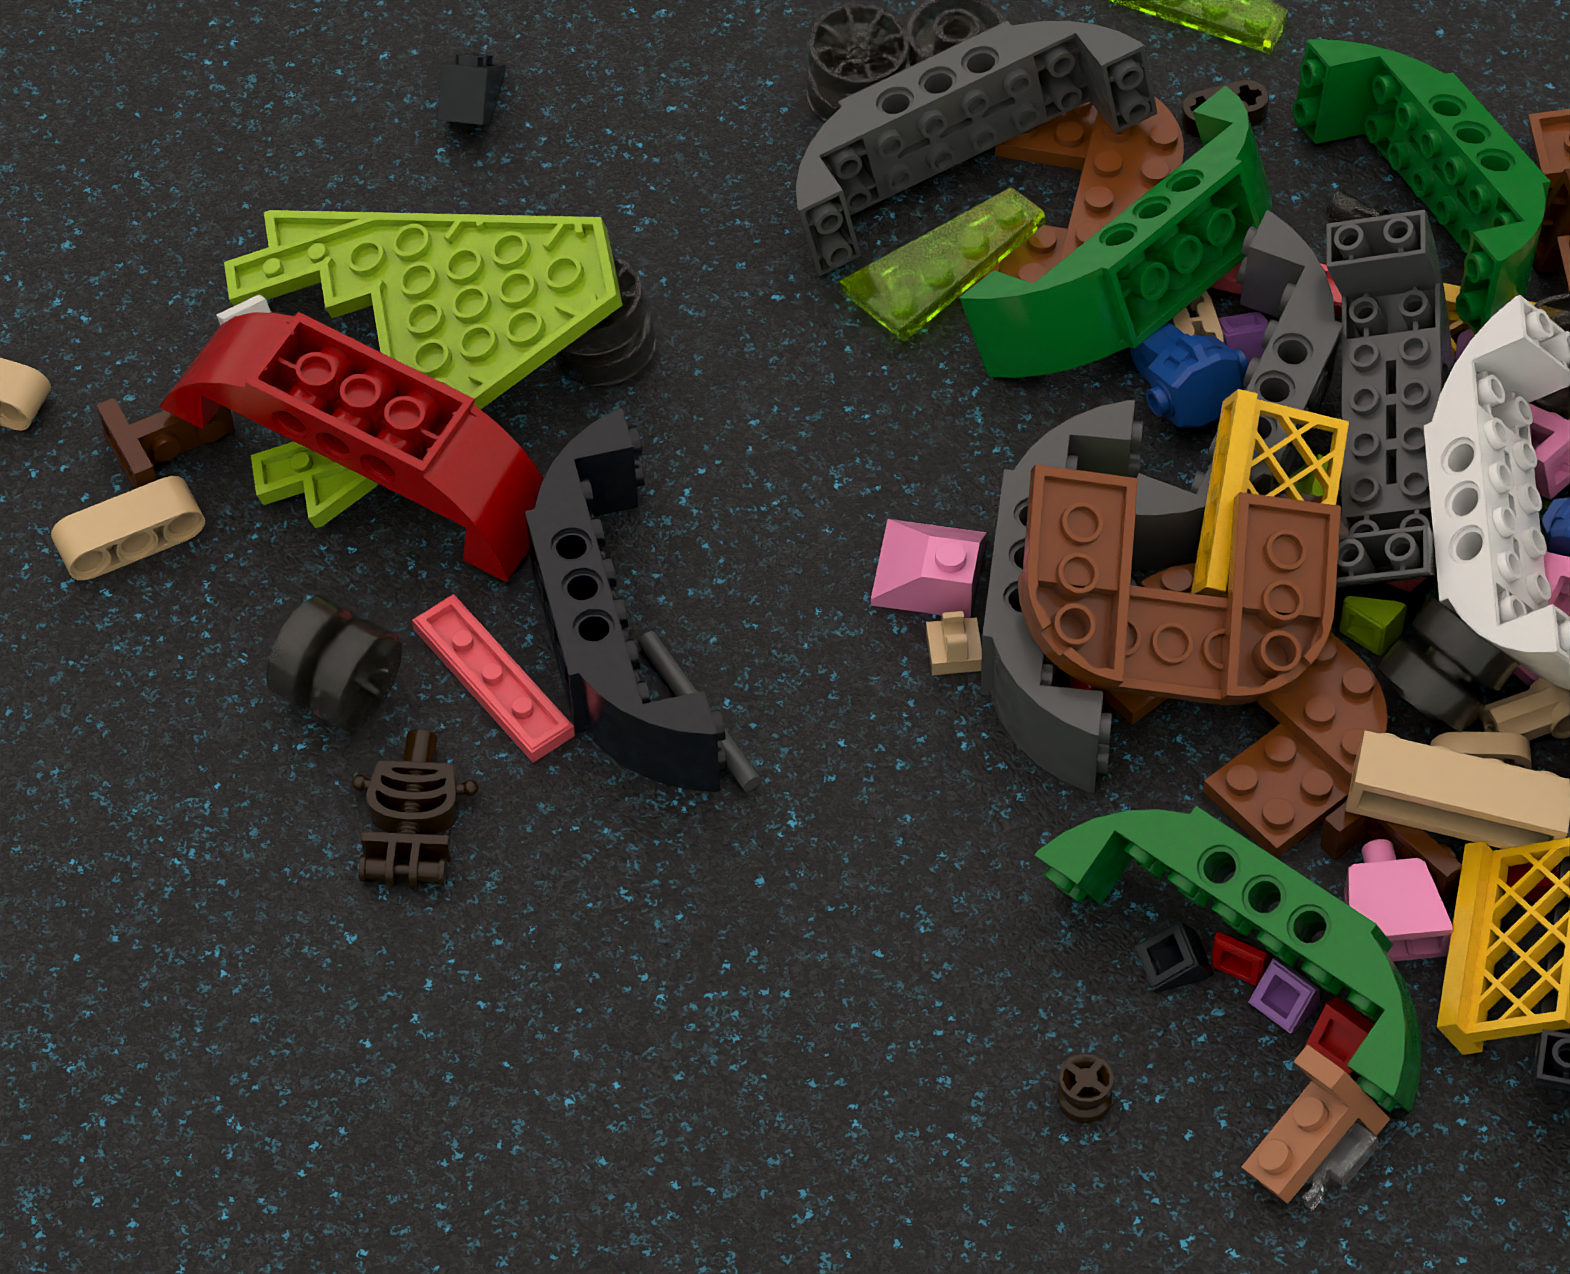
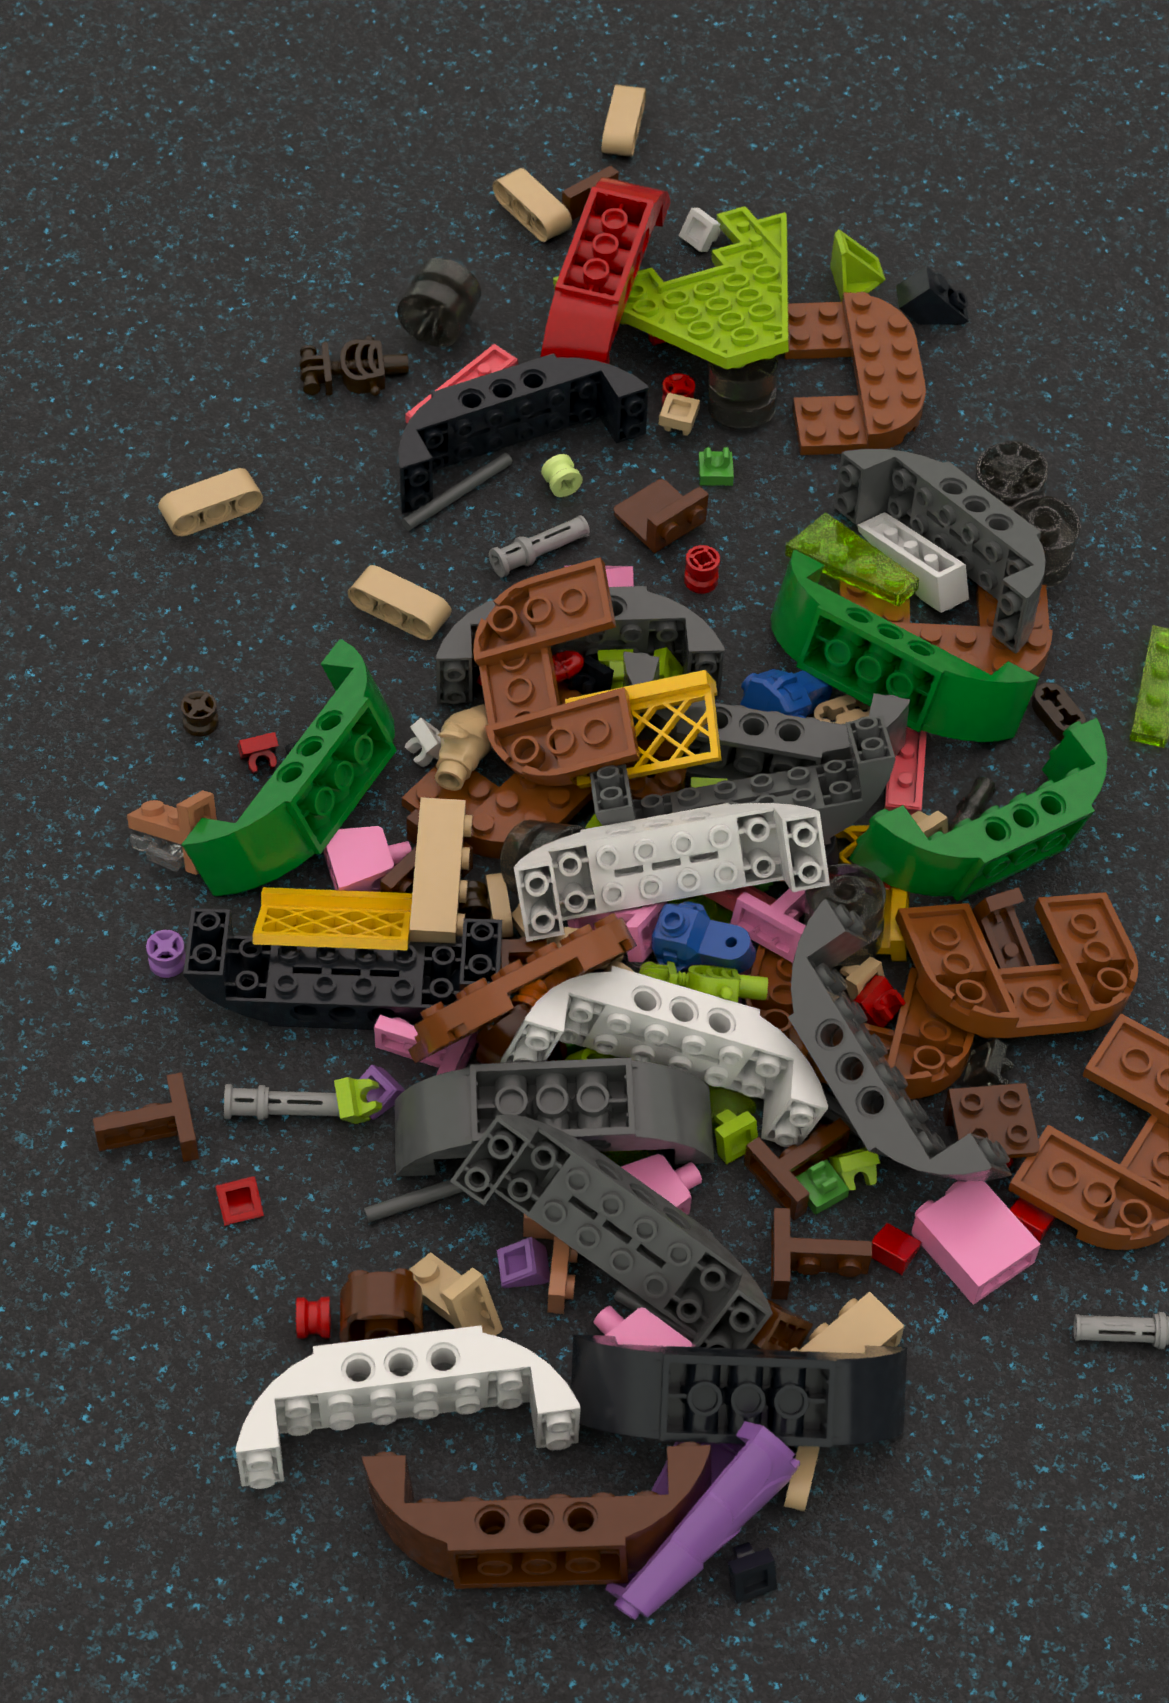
camera: 75 degrees right, 0 degrees up
(381, 172) = (854, 266): none -> lime slope
(573, 407) = (678, 384): none -> red wheel
(635, 401) = (679, 413): none -> tan tile
(651, 169) = (884, 367): none -> dark orange plate
(663, 1031) = (210, 502): none -> tan beam
(708, 570) = (561, 475): none -> yellowish green wheel
(721, 392) = (715, 467): none -> bright green tile
(808, 464) = (662, 513): none -> reddish brown bracket
(840, 637) = (525, 549): none -> light grey pin
(914, 805) = (399, 602): none -> tan beam
(921, 434) = (702, 569): none -> red wheel
(946, 194) = (939, 573): none -> white slope
(1165, 1015) = (259, 747): none -> red tile
(1187, 796) = (427, 739): none -> white tile
(1211, 742) = (462, 746): none -> tan animal
(1527, 1158) = (166, 944): none -> medium lavender wheel

